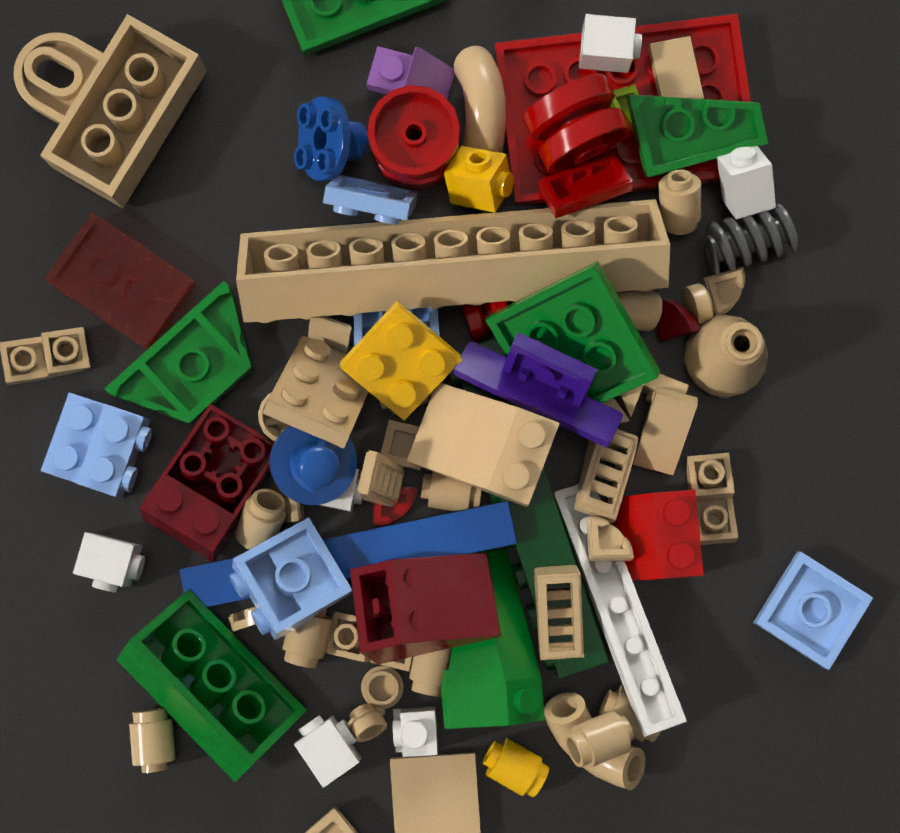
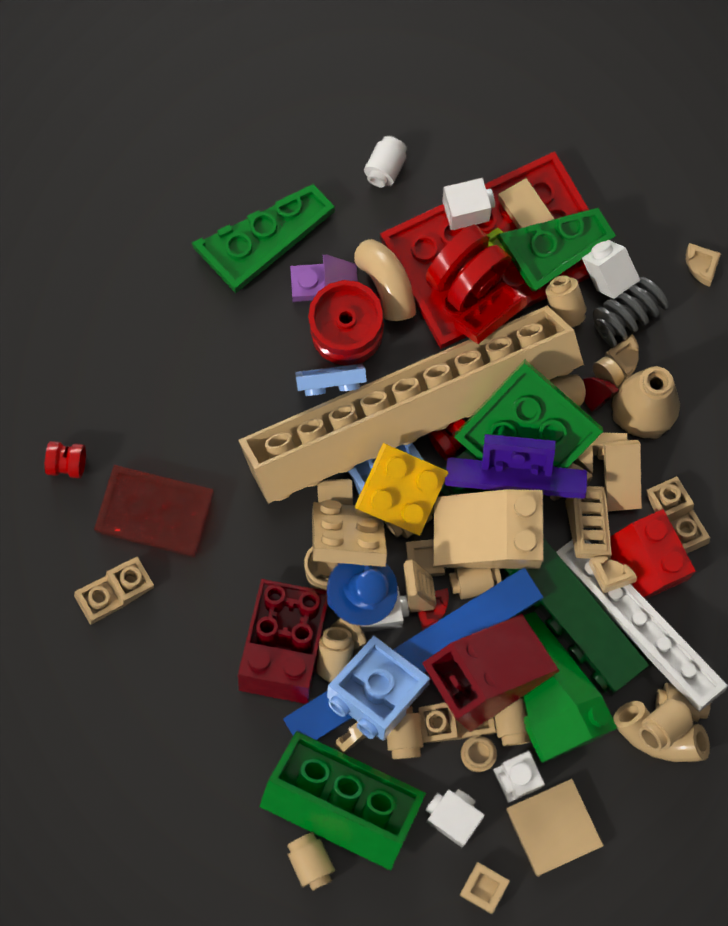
camera: 20 degrees left, 10 degrees down
(40, 186) = (65, 459): none -> red wheel
(97, 446) = (181, 645): light blue plate -> none
(109, 562) = (225, 731): white brick -> none
(116, 105) = (103, 377): tan brick -> none
(190, 362) = (232, 555): green wing -> none
(327, 139) = (278, 346): blue plate -> none
(367, 722) = (478, 784): tan plate -> none
(478, 179) = (407, 336): yellow brick -> none
(515, 767) = (608, 777): yellow brick -> none
(556, 575) = (579, 632): tan slope -> none
(859, 209) = (702, 263): none -> tan tile

